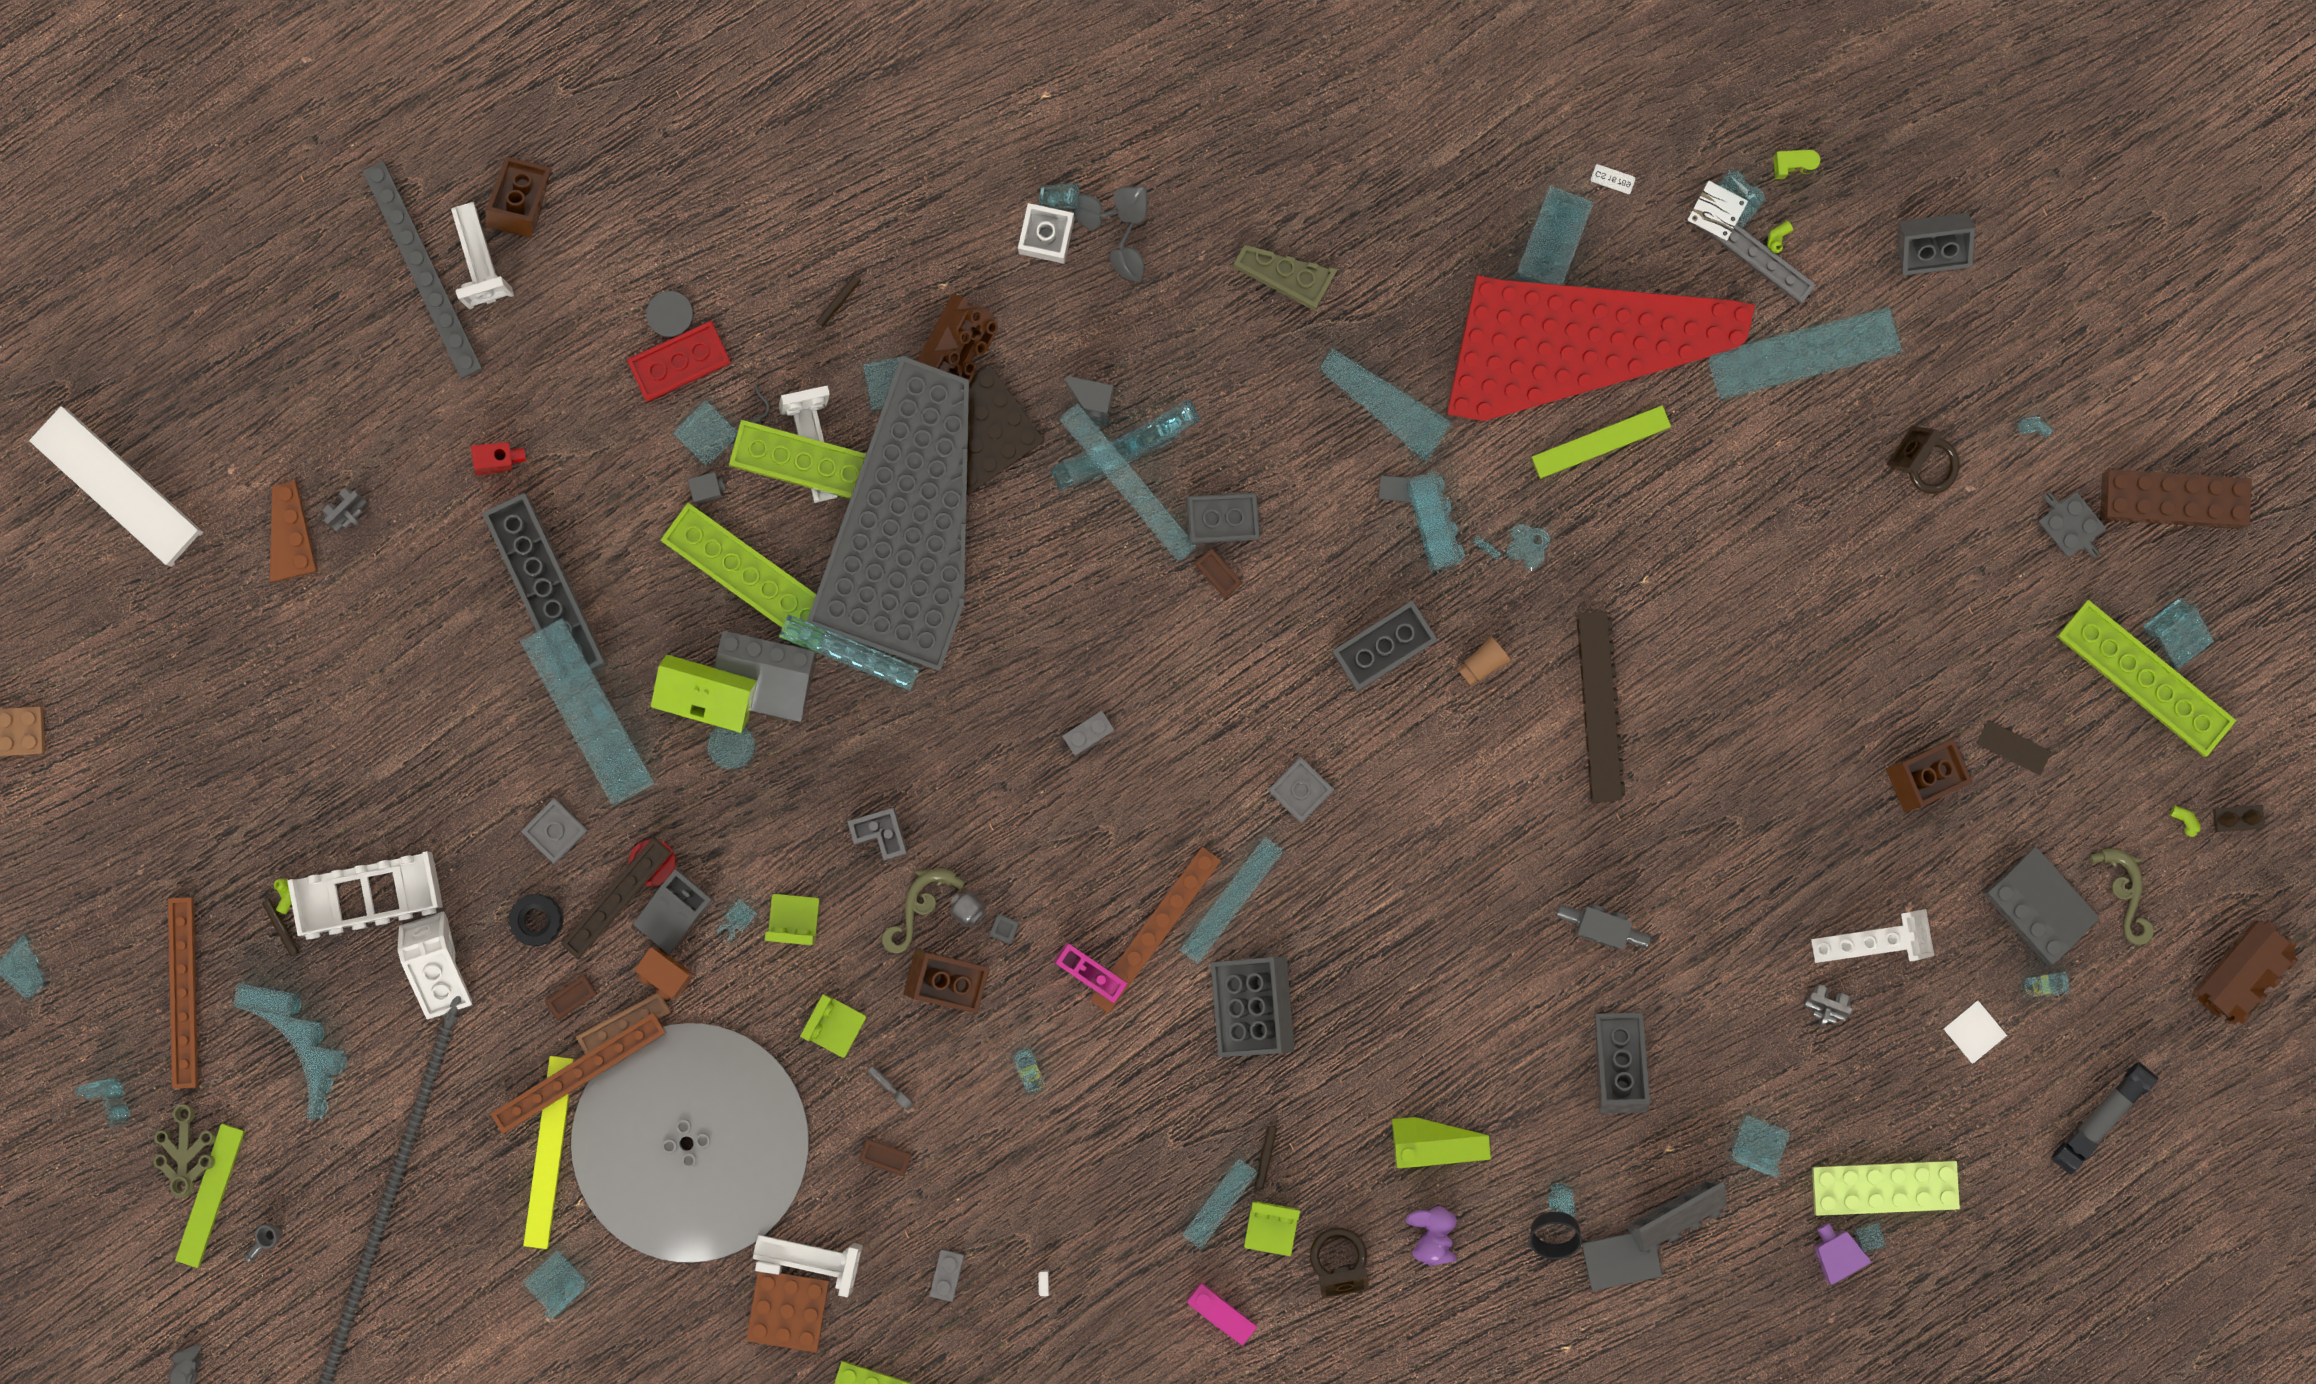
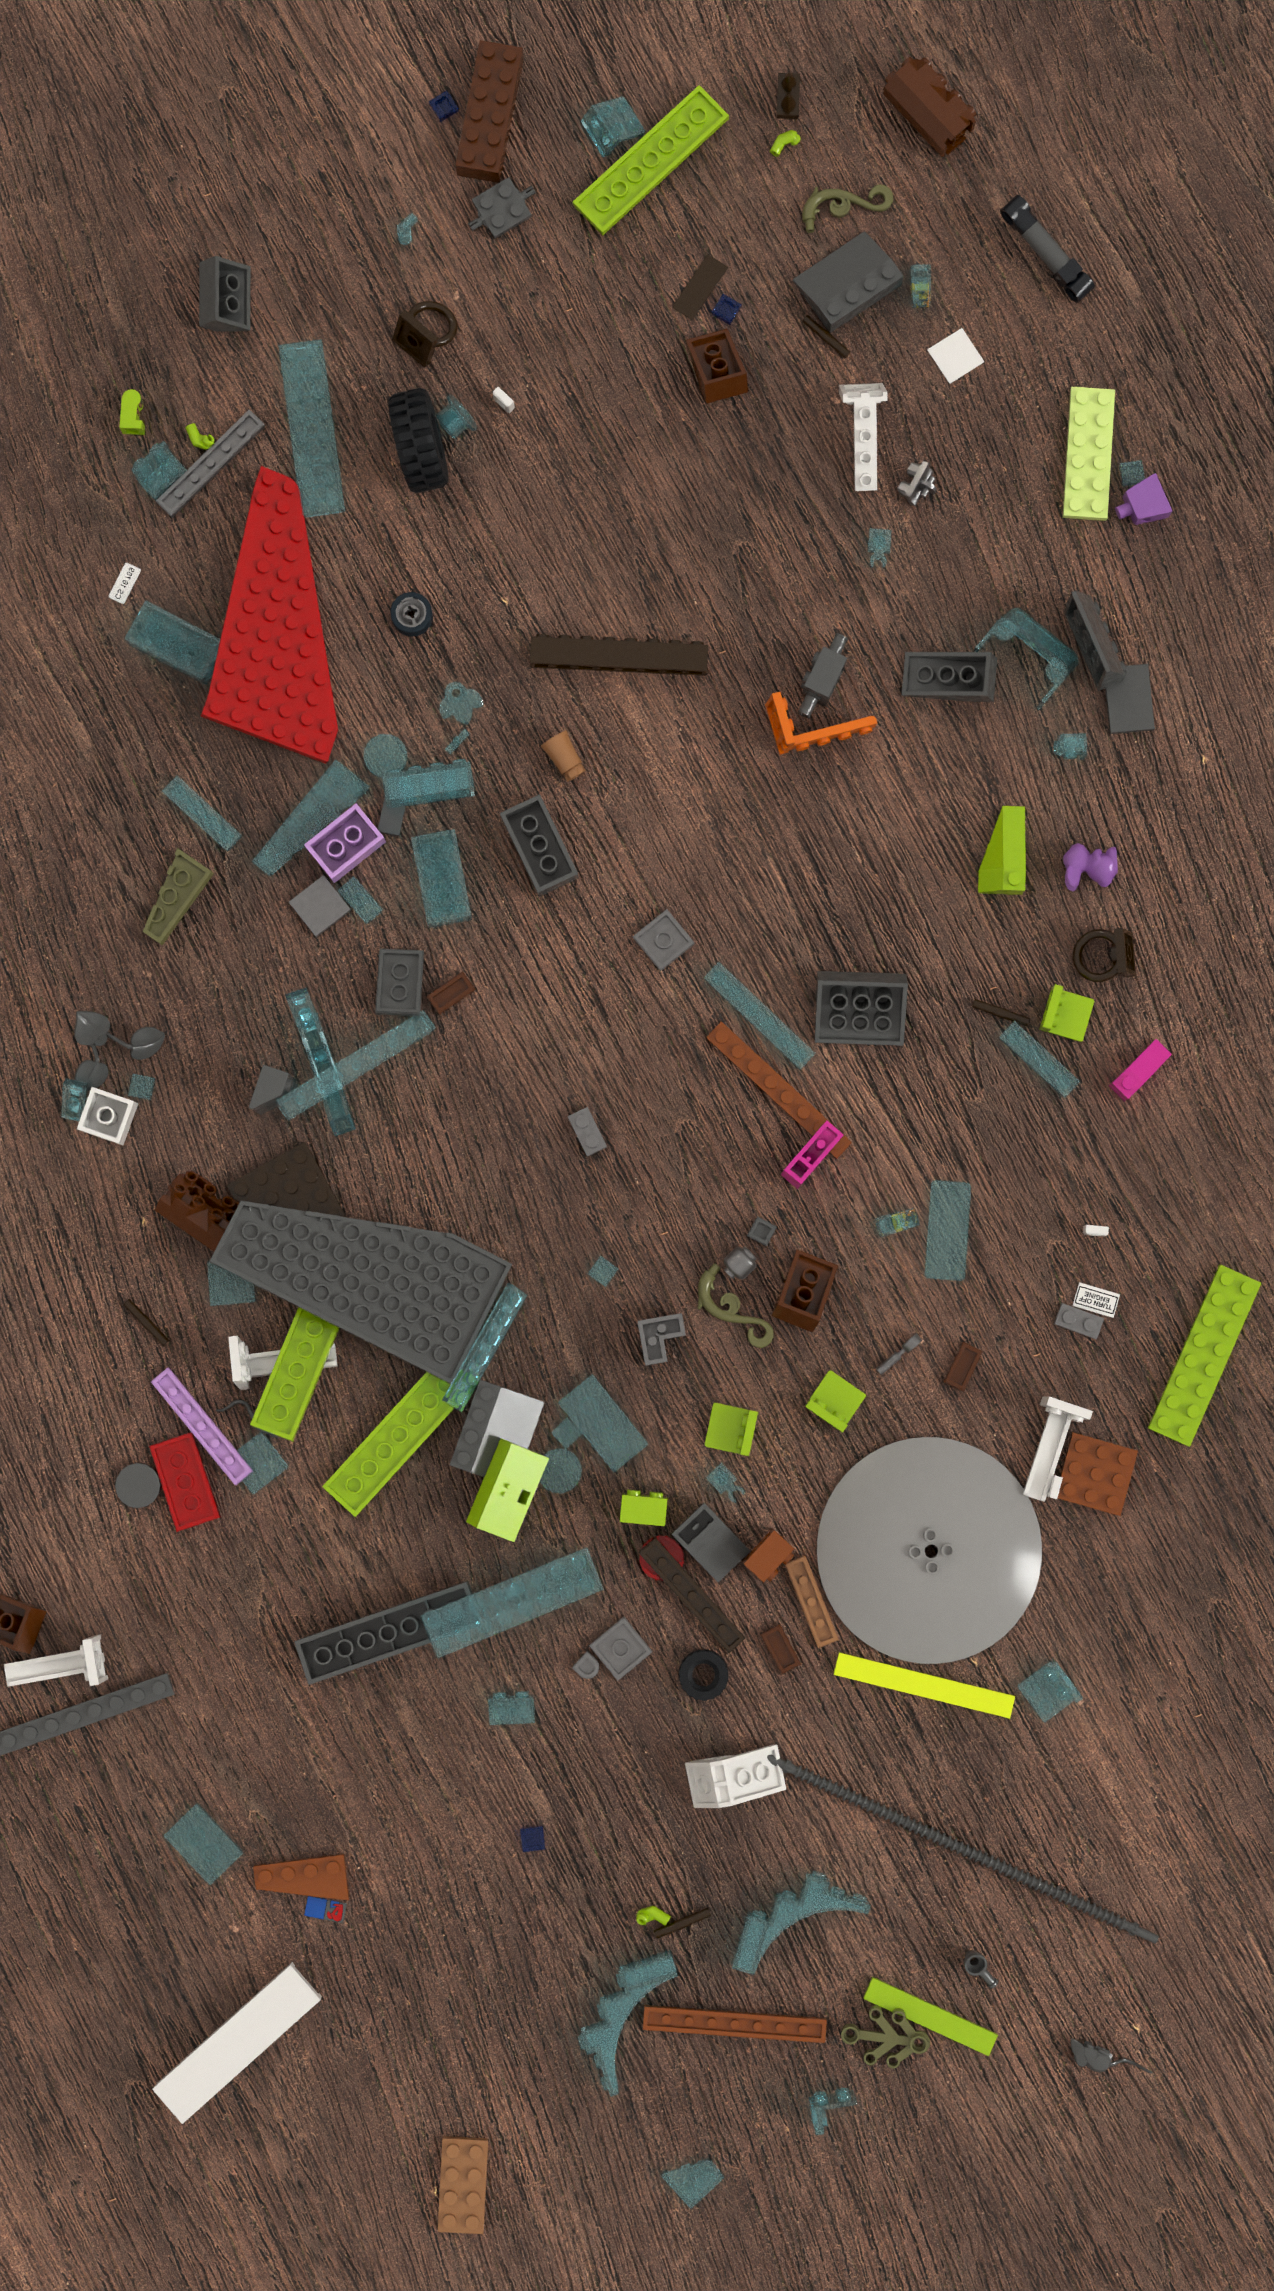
camera: 90 degrees left, 0 degrees up
(216, 887) = (602, 2037): none -> clear light blue arch
(259, 559) = (325, 1909): none -> sticker
(312, 427) = (203, 1844): none -> clear light blue tile
(318, 905) = (666, 1883): white window -> none
(346, 511) = (291, 1819): flat silver hips -> none
(351, 763) = (532, 1838): none -> clear blue tile
(481, 725) = (511, 1709): none -> clear light blue bracket
(485, 458) = (256, 1677): red torso -> none
(532, 798) = (586, 1666): none -> flat silver tile
(578, 1073) = (853, 1648): dark orange plate -> none
(699, 837) = (643, 1508): none -> lime brick
(706, 488) = (310, 1467): dark grey brick -> none
(737, 371) = (202, 1426): none -> lavender tile
(771, 748) = (566, 1433): none -> clear light blue tile
(785, 785) = (603, 1423): none -> clear light blue tile
(943, 767) = (603, 1271): none -> clear light blue tile
(971, 1291) = (1096, 1300): none -> white sticker
(1027, 1125) = (947, 1230): none -> clear light blue piece
(1082, 265) = (141, 1087): none -> clear light blue tile
(1293, 425) = (320, 906): none -> flat silver tile
(1305, 466) = (360, 900): none -> clear light blue plate
(1337, 548) = (441, 878): none -> clear light blue brick
(1362, 442) = (345, 843): none -> lavender brick
(1376, 290) = (202, 813): none -> clear light blue plate
(1462, 474) = (384, 754): none -> clear light blue tile
(1541, 891) = (783, 728): none -> orange bracket
(1560, 1250) = (1115, 754): black tyre -> none
(1601, 442) = (371, 624): lime tile -> none
(1613, 494) = (411, 602): none -> wheel
(1658, 1180) = (1060, 657): none -> clear light blue windscreen
(1717, 210) = (167, 489): white sticker -> none
(1756, 971) = (879, 543): none -> clear light blue plate
(1759, 1146) = (1039, 561): clear light blue bracket -> none
(1800, 465) = (418, 440): none -> black tyre
(1834, 503) = (455, 418): none -> clear light blue piece
(1860, 551) = (503, 400): none -> white tile
(1977, 889) = (826, 336): none -> dark brown piece
(1993, 778) = (726, 309): none -> clear blue tile
(2176, 449) = (443, 106): none -> clear blue tile

